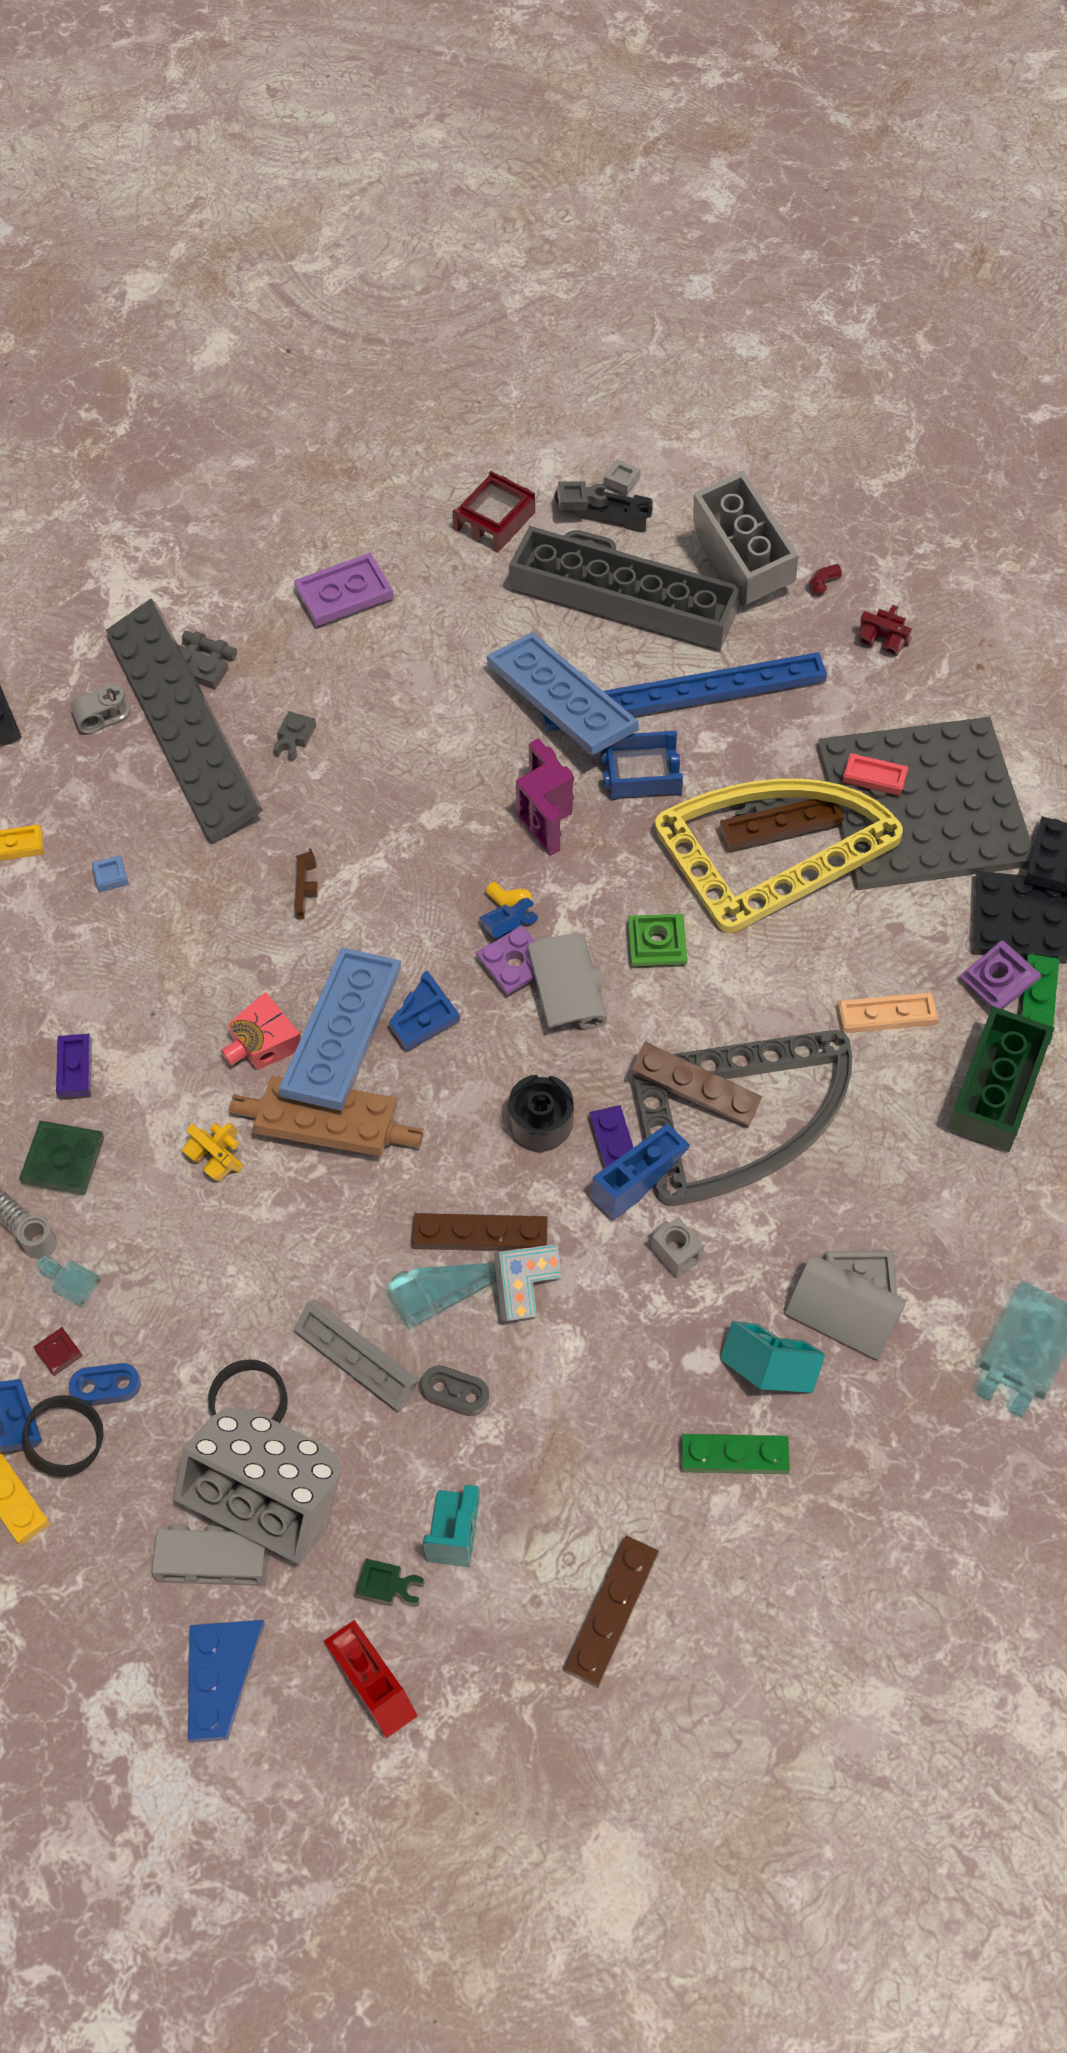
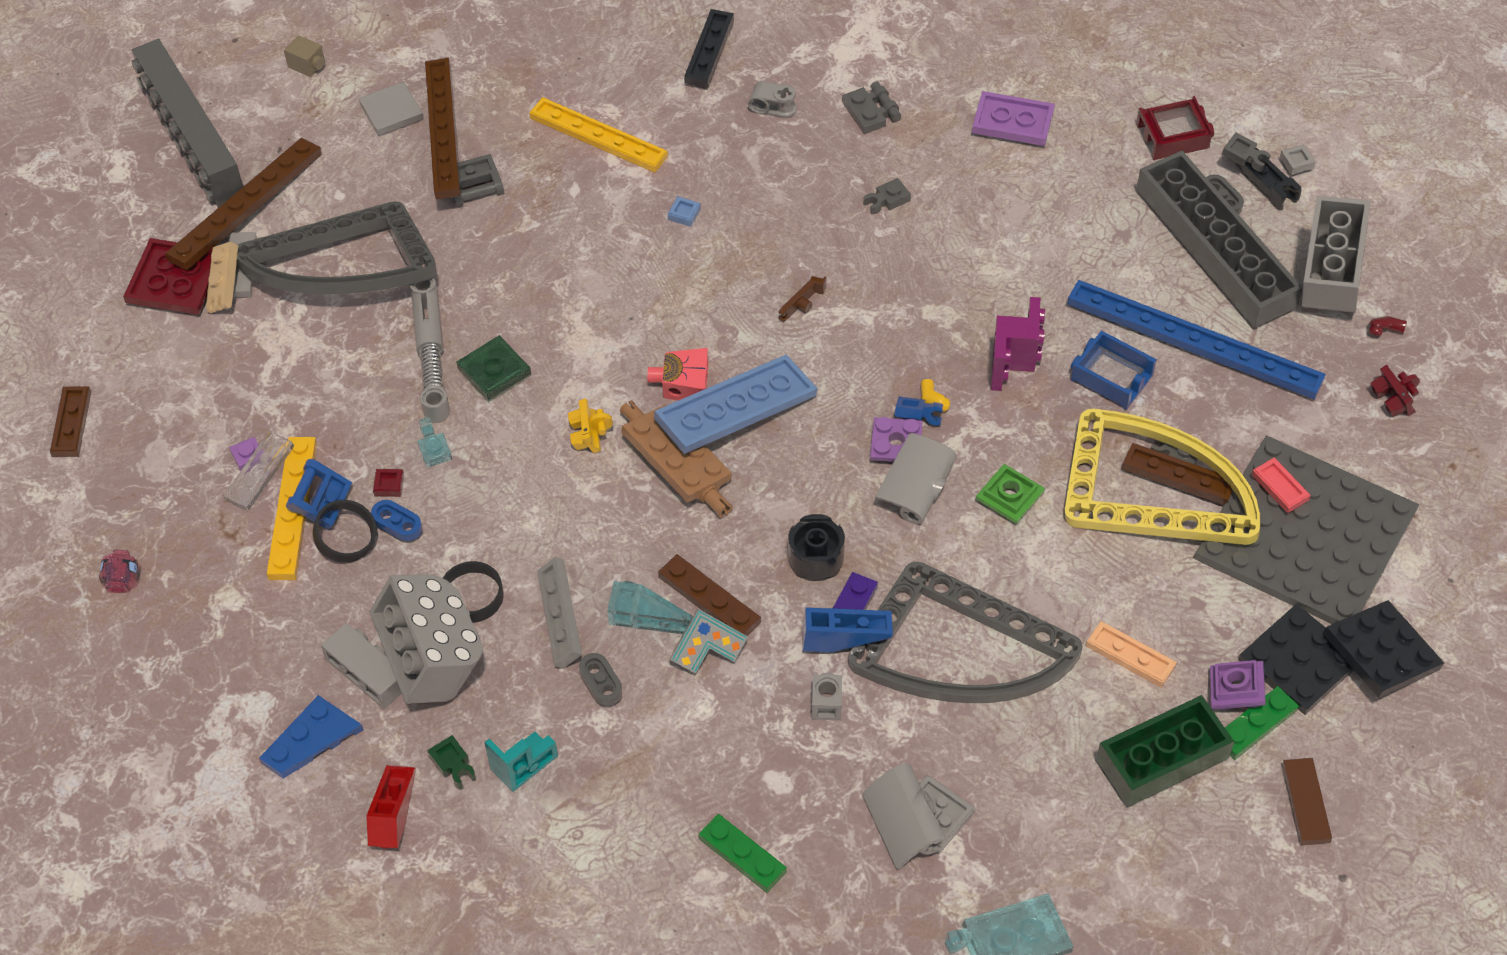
camera: 40 degrees right, 5 degrees down
(74, 1065) = (551, 316): dark purple plate -> none
(184, 721) = (819, 140): dark grey plate -> none
(423, 1014) = (801, 433): blue wing -> none
(562, 693) = (1097, 282): medium blue plate -> none
(611, 1611) = (572, 884): reddish brown plate -> none
(696, 1084) = (941, 603): reddish brown plate -> none
(771, 1360) = (819, 813): teal panel -> none

